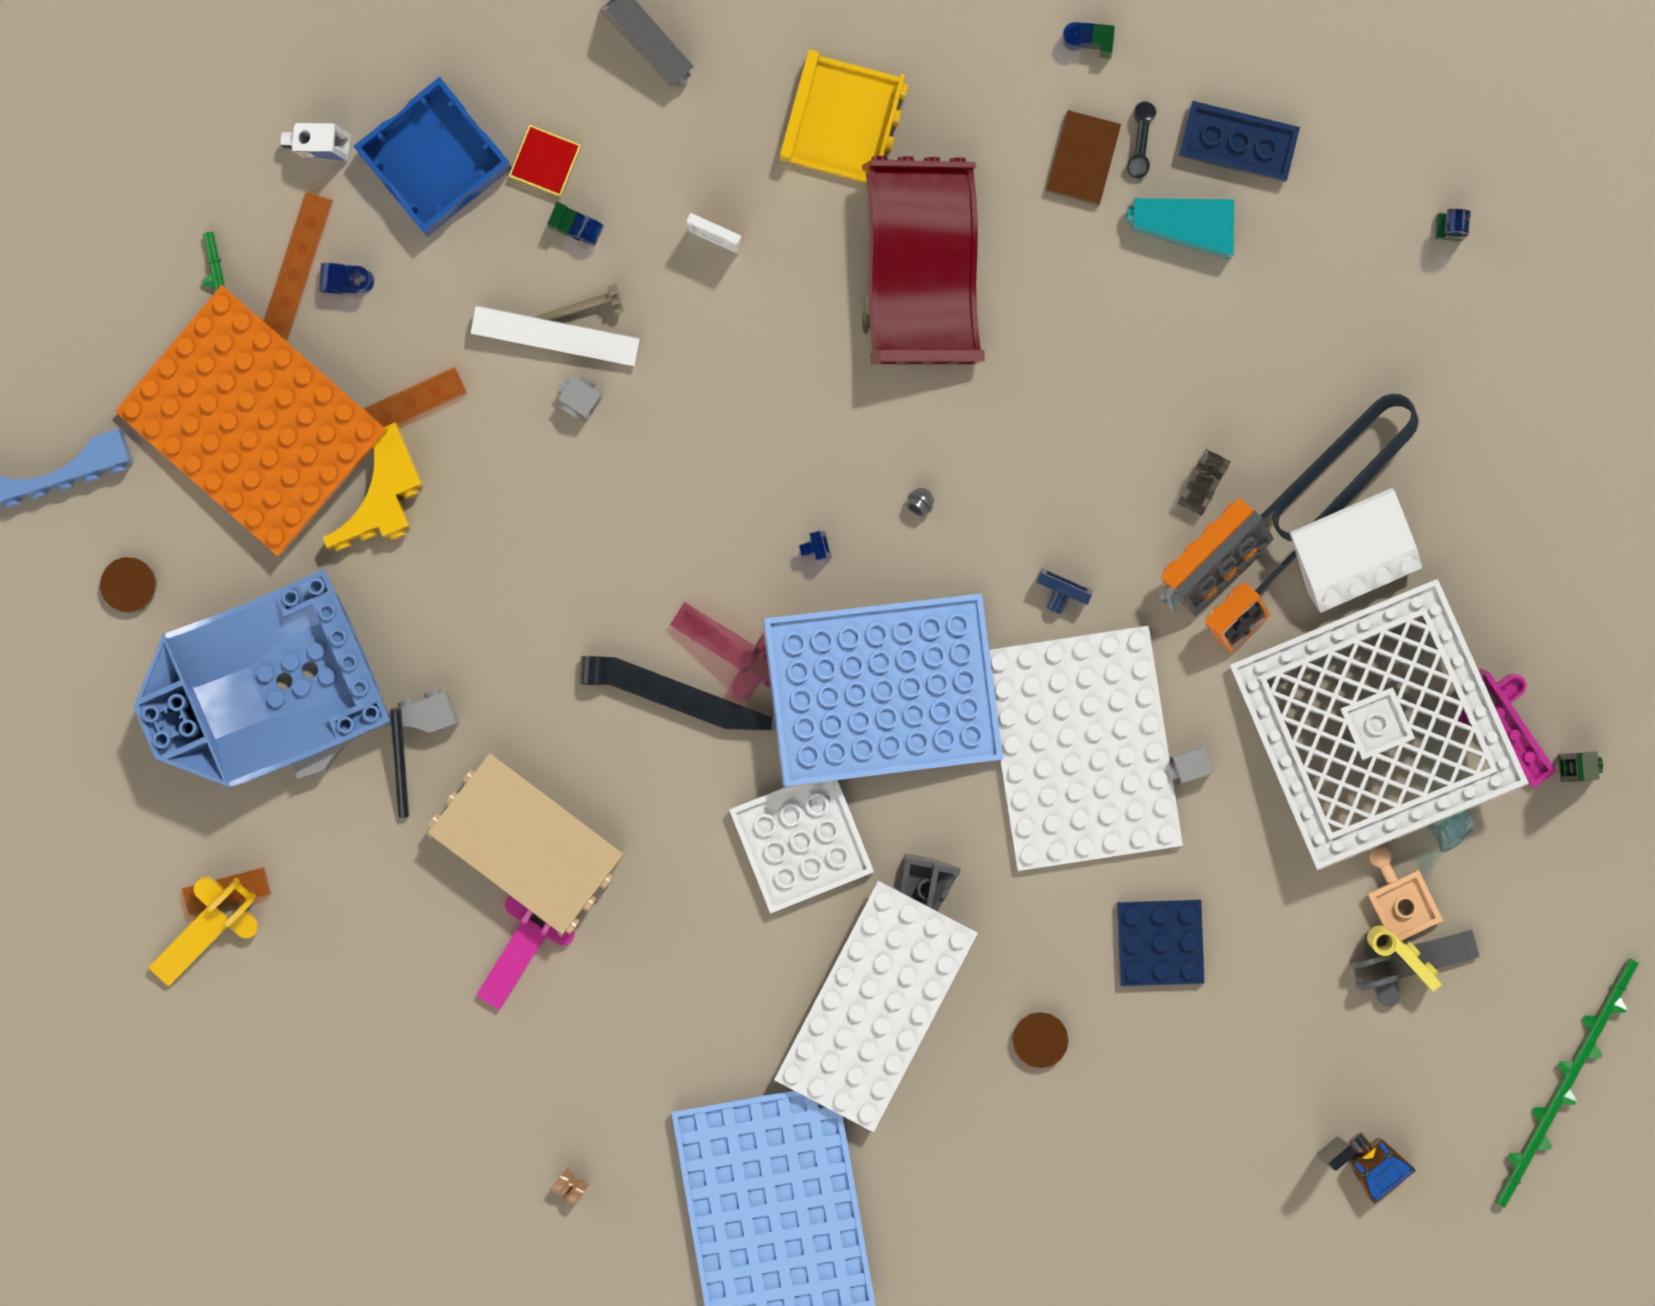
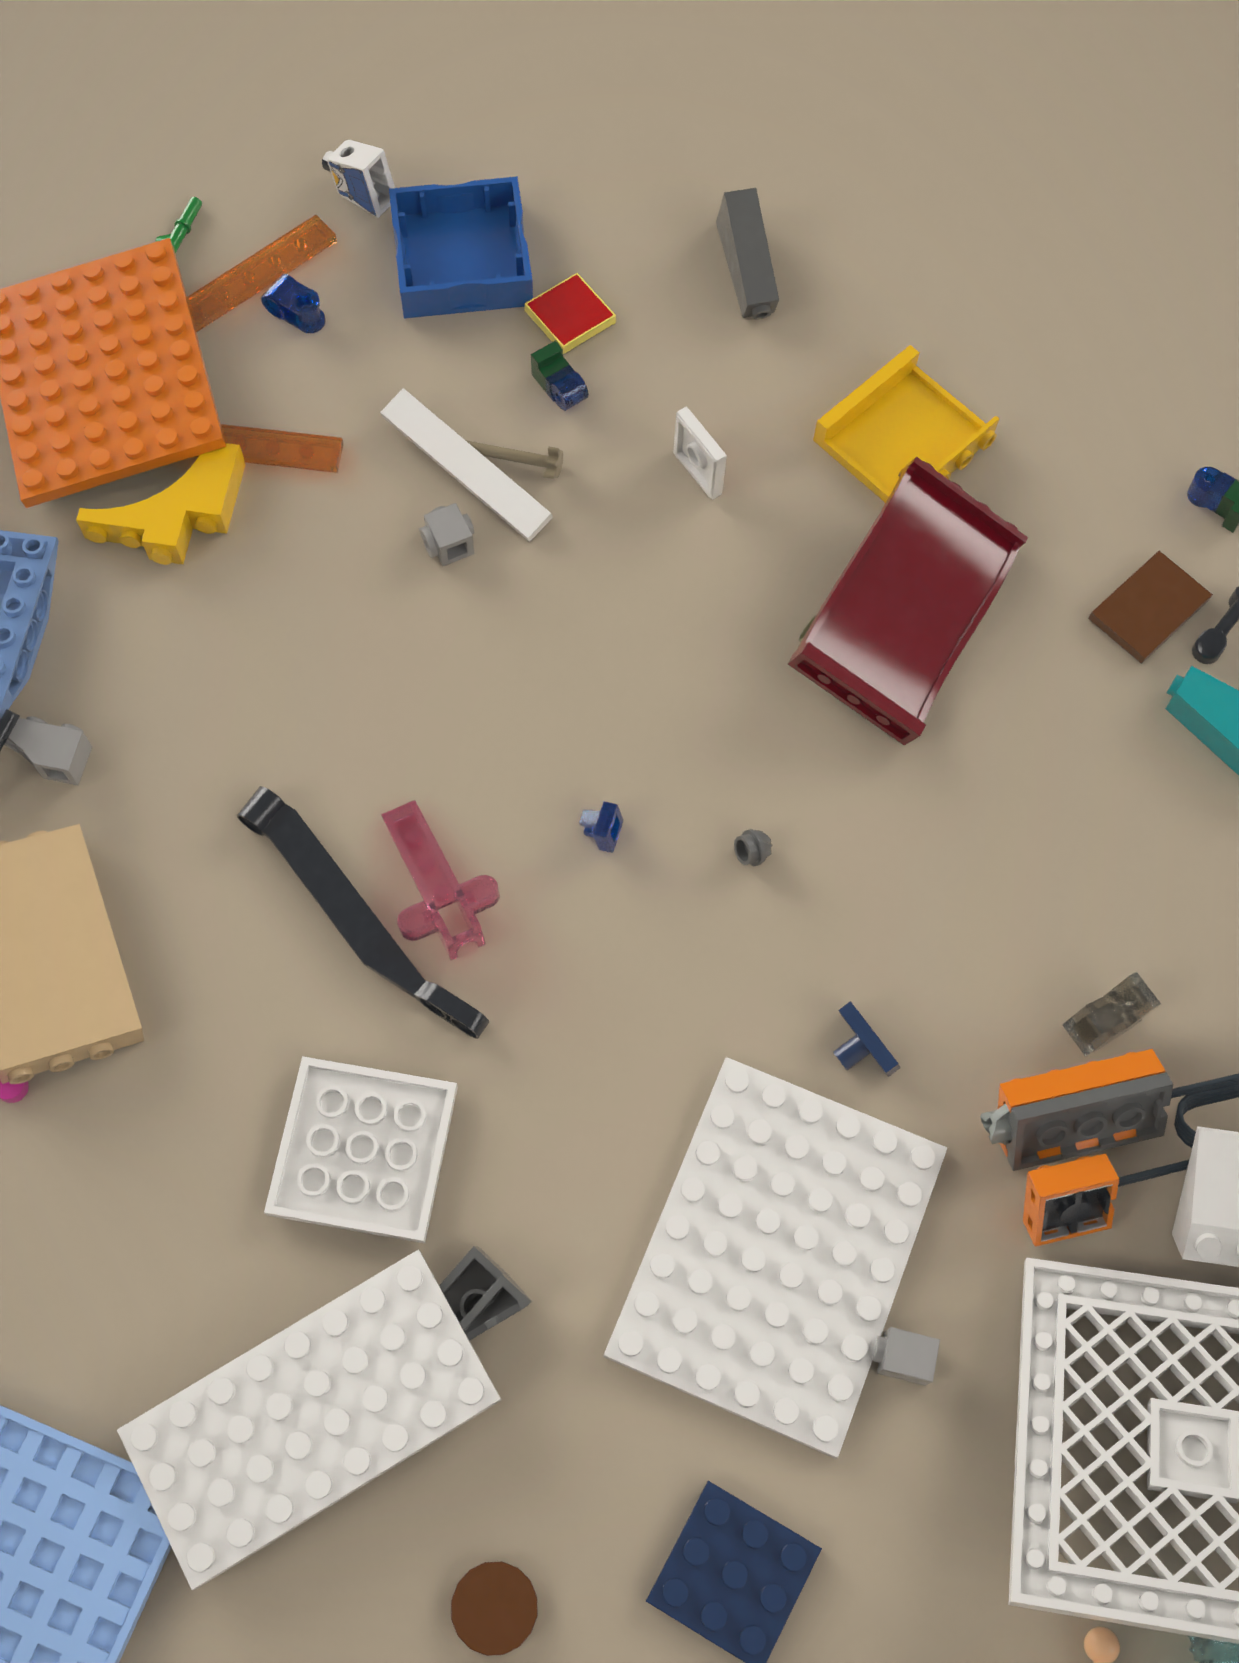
camera: 30 degrees right, 20 degrees down
(882, 689) = (574, 1025): light blue plate -> none

